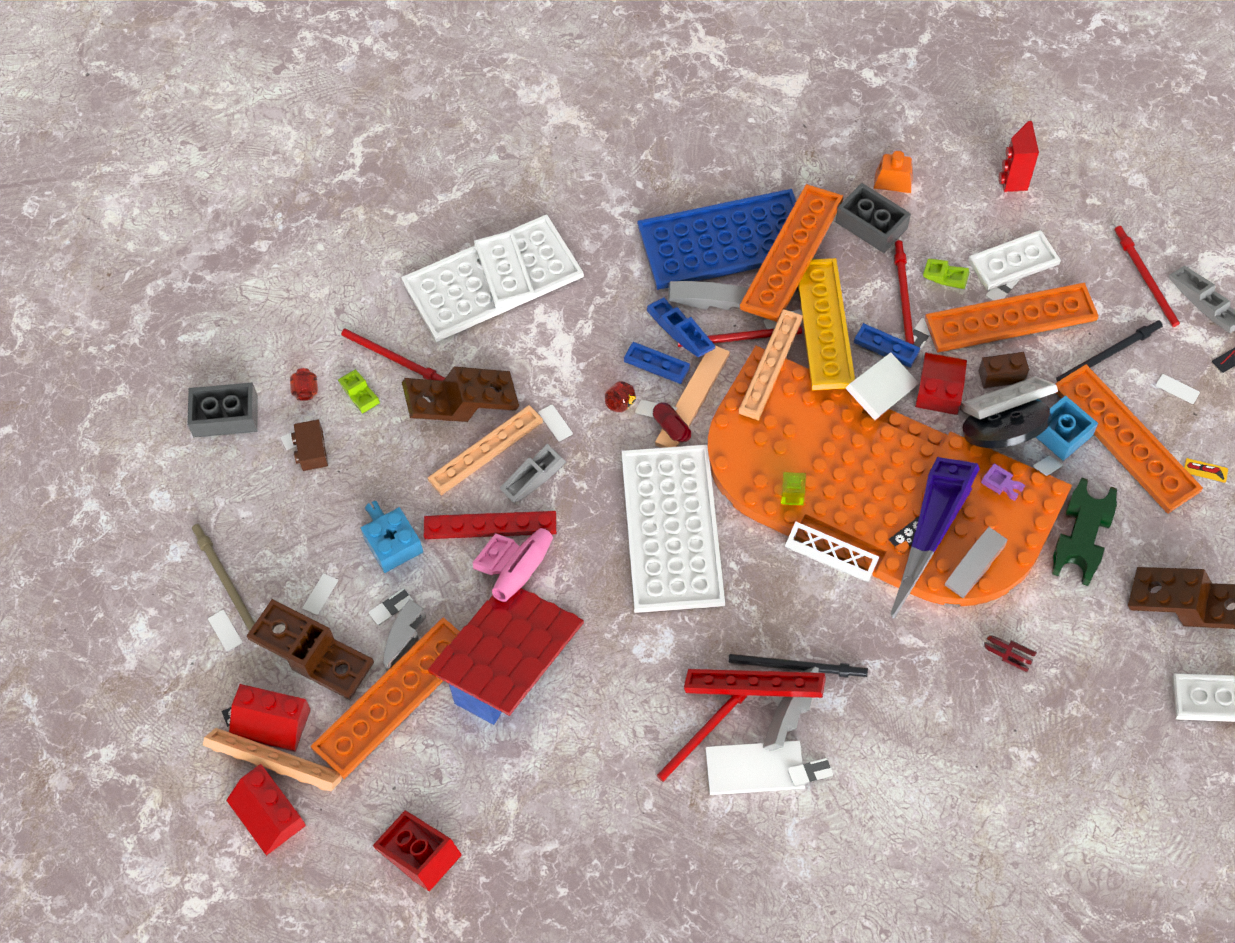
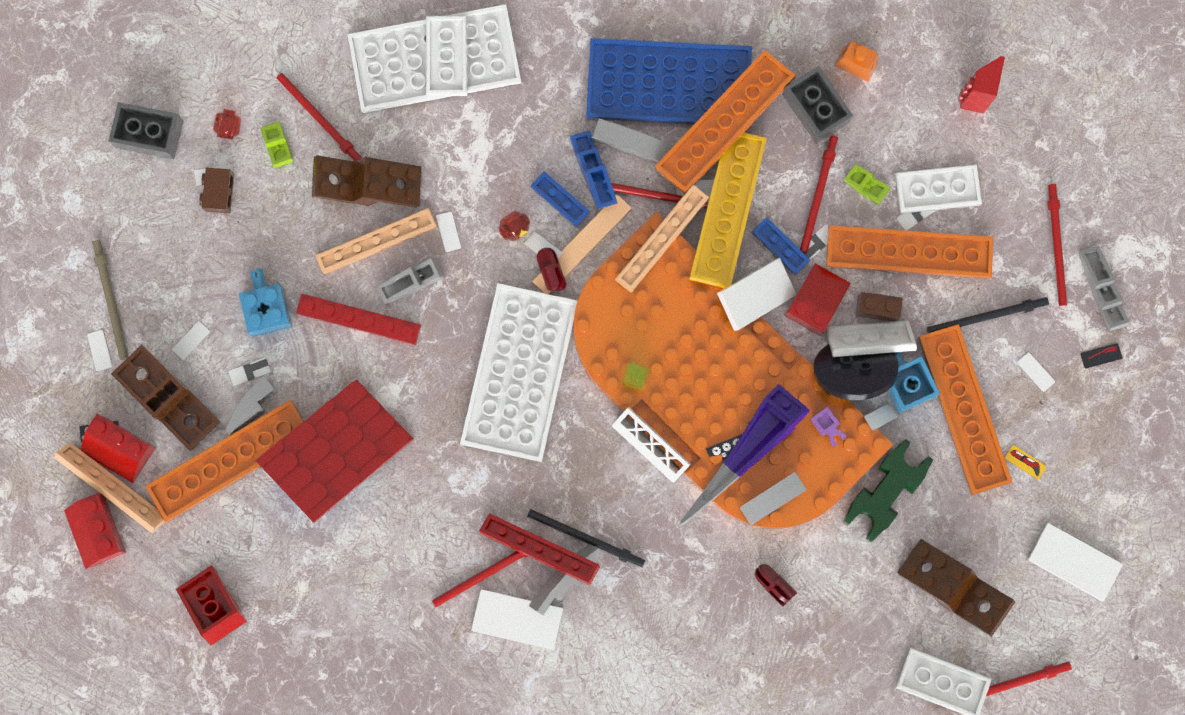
camera: 15 degrees right, 20 degrees up
(512, 562) = (366, 365): bright pink plate -> none
(810, 771) = (562, 638): white sticker -> none

